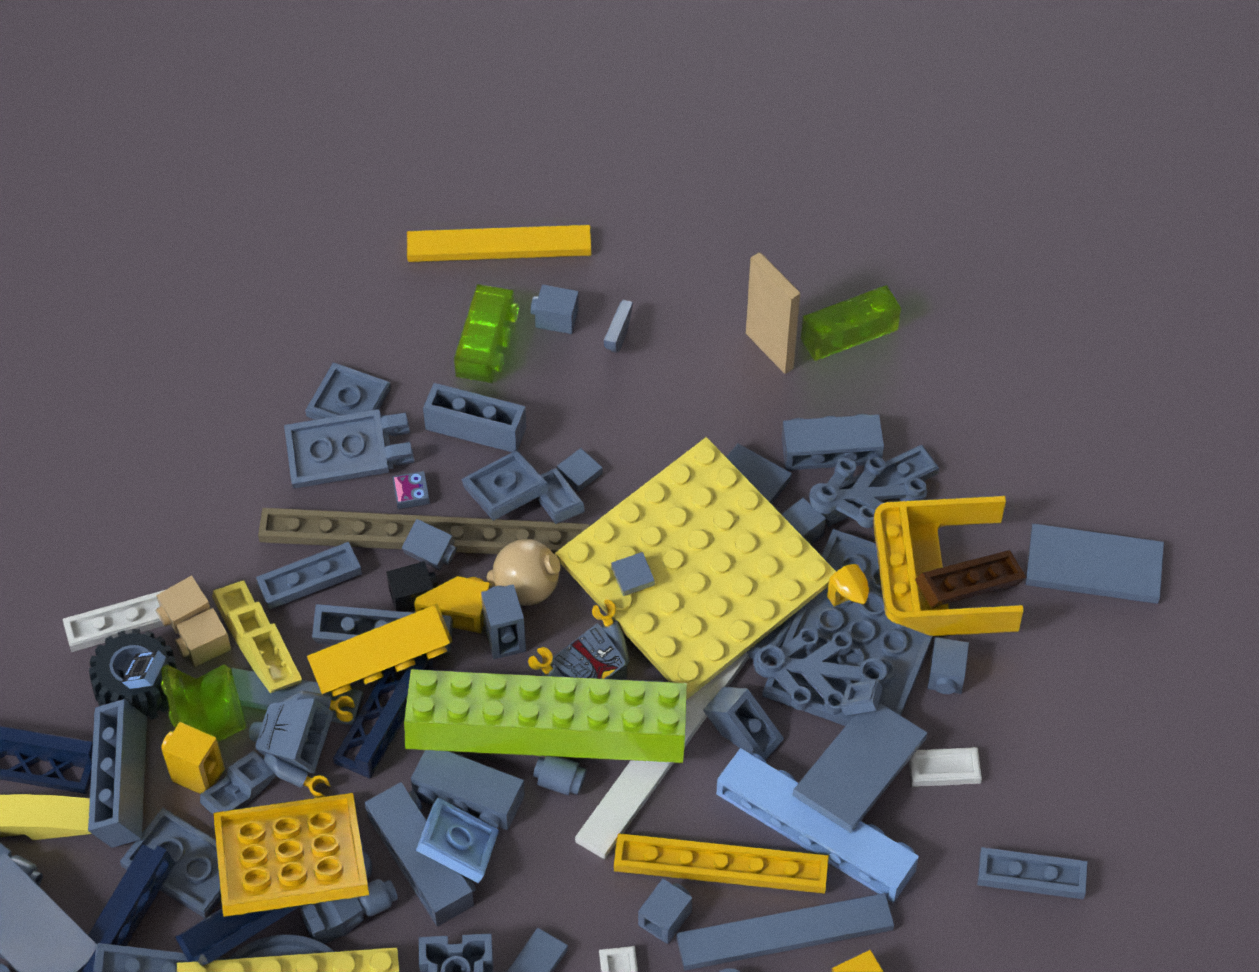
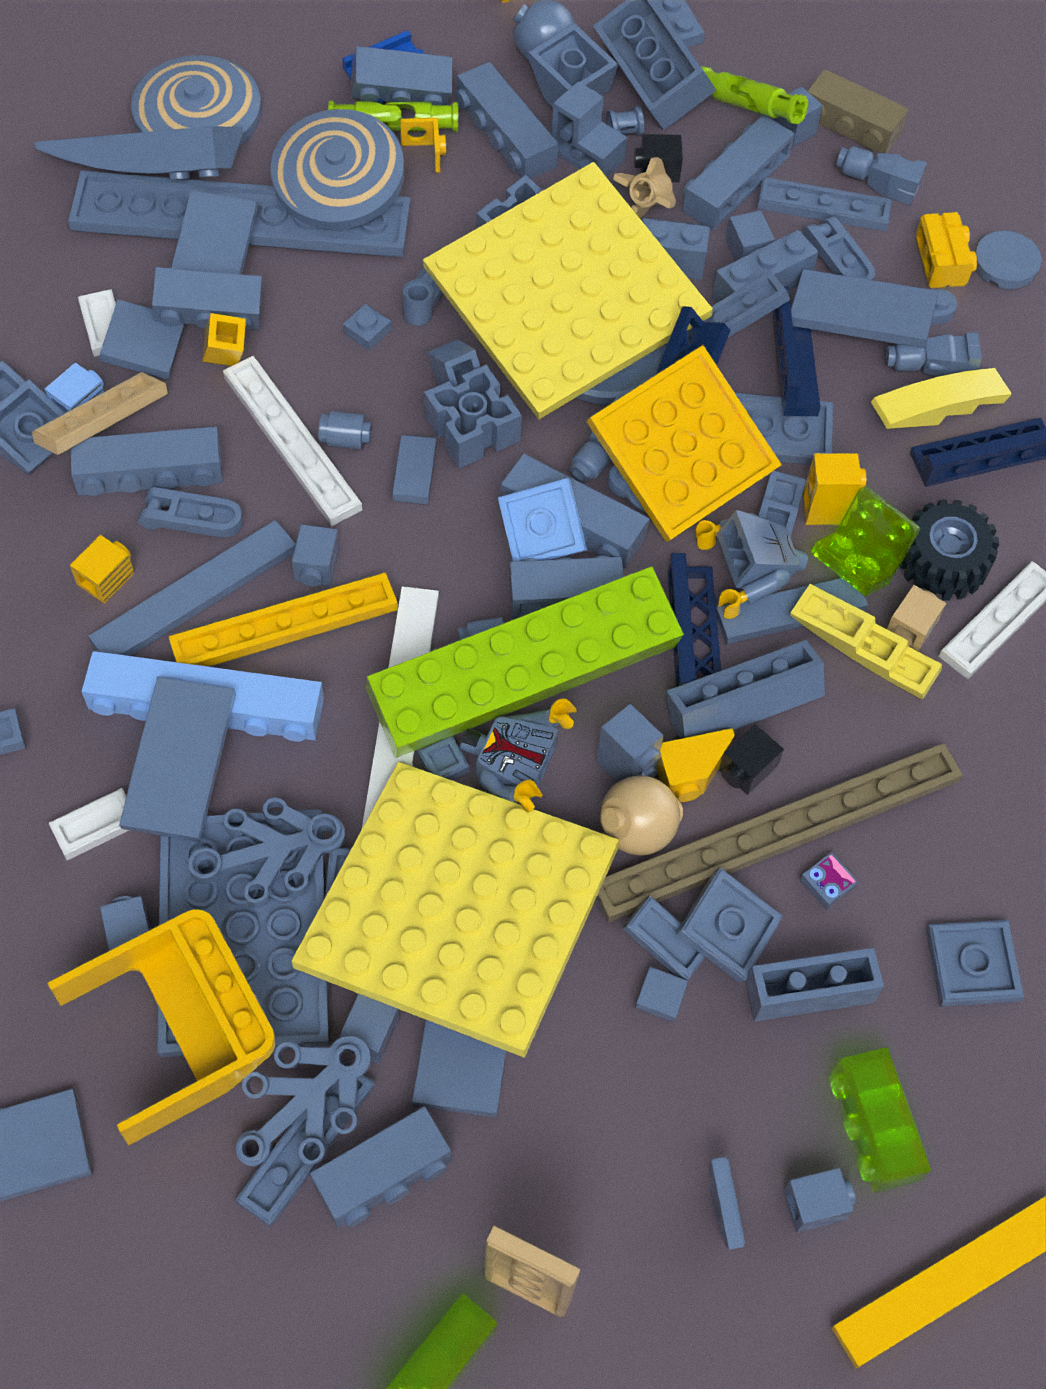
camera: 150 degrees right, 5 degrees up
(117, 773) = (888, 452): sand blue brick -> none
(144, 669) = (933, 521): tile -> none
(181, 603) = (956, 628): tan brick -> none
(308, 575) = (862, 730): sand blue plate -> none
(345, 447) = (930, 891): sand blue tile -> none
(380, 649) = (728, 648): yellow brick -> none
(429, 545) = (759, 797): sand blue brick -> none
(632, 574) = (517, 841): sand blue tile -> none
(743, 721) = (328, 767): sand blue slope -> none
(848, 584) = (270, 945): yellow plate -> none
(861, 697) = (205, 827): sand blue tile -> none
(970, 578) = (132, 1028): reddish brown plate -> none

